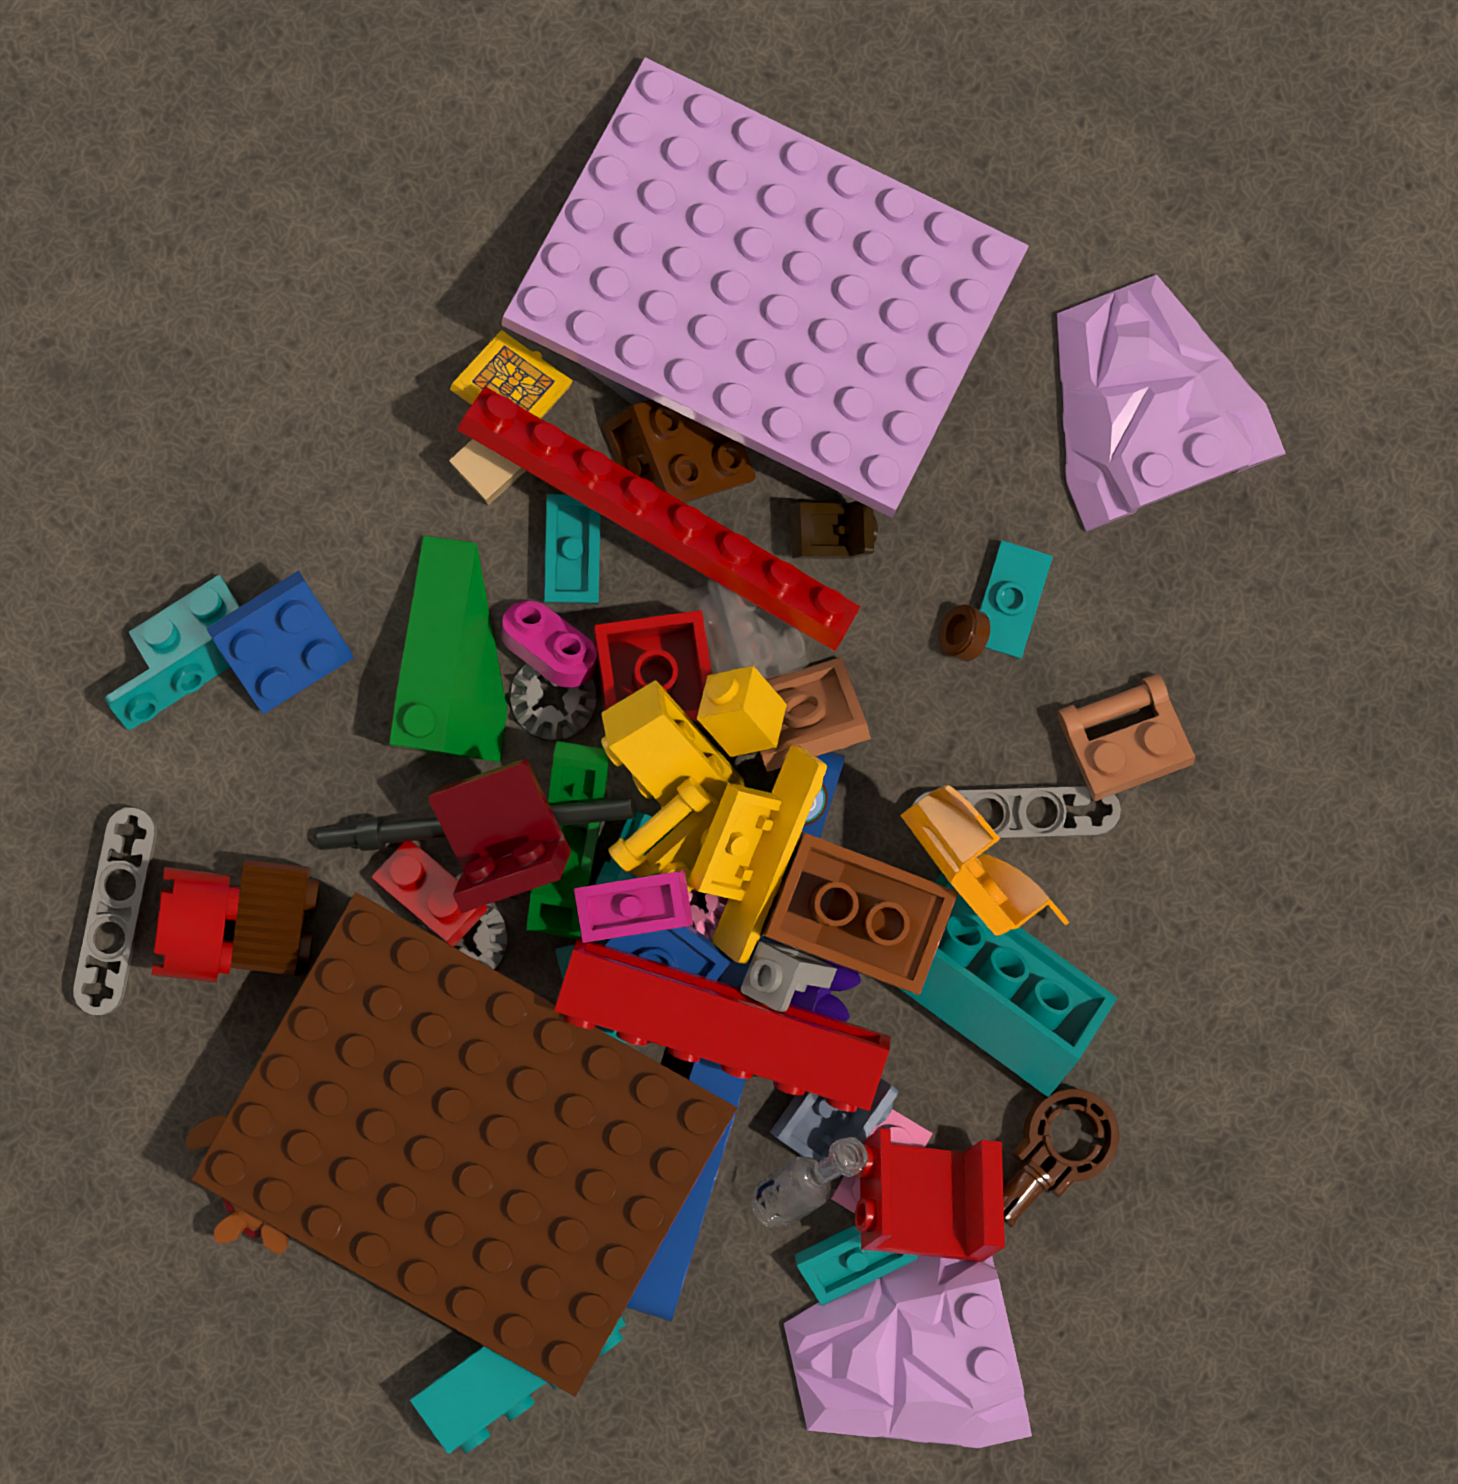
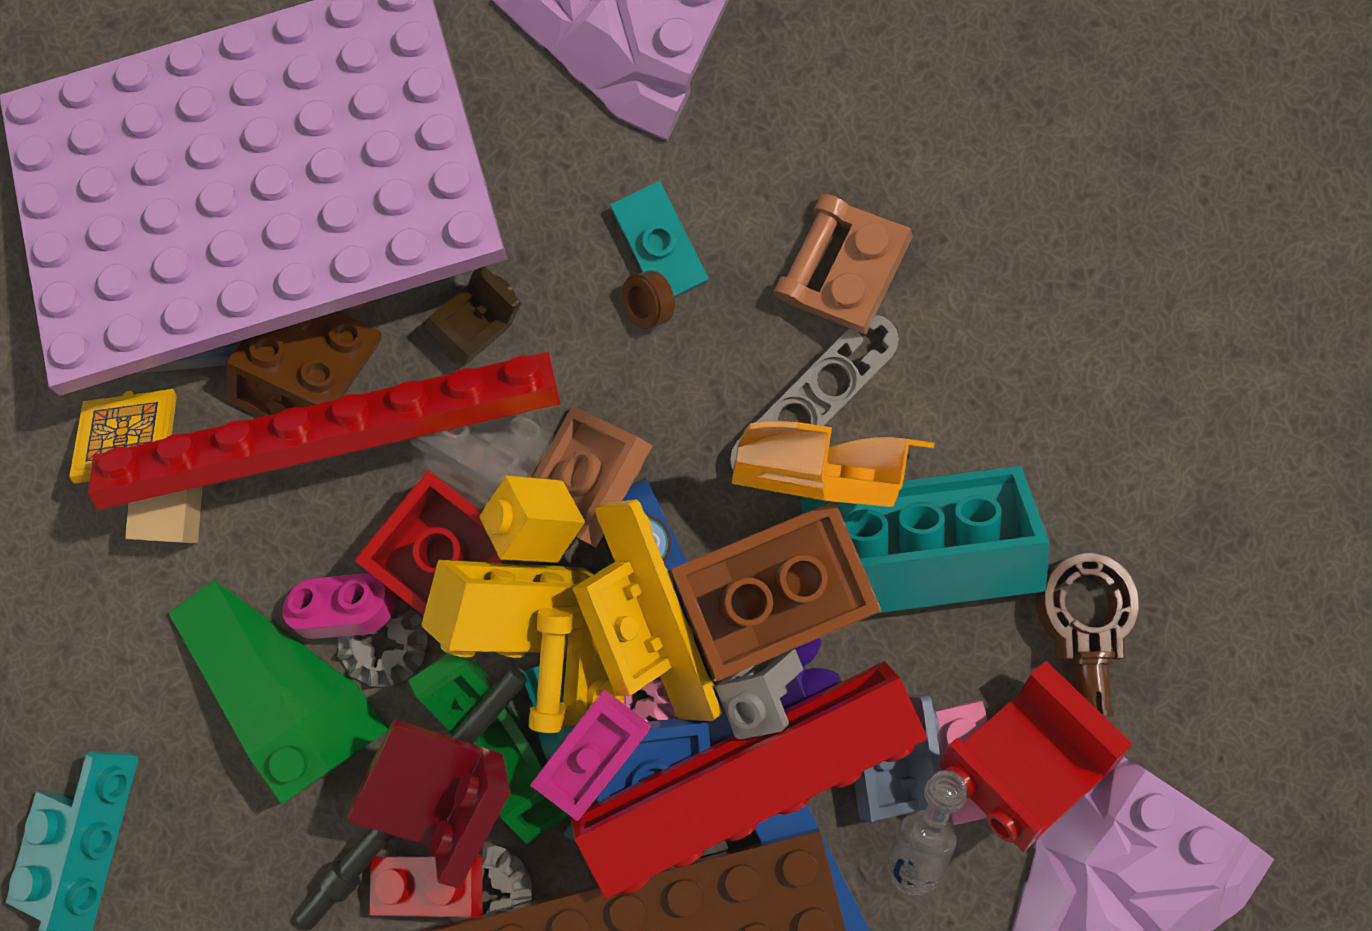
camera: 40 degrees left, 0 degrees up
(280, 642) = (125, 803): blue plate -> none
(571, 552) = (291, 518): teal plate -> none
(840, 1265) = (1009, 875): teal plate -> none

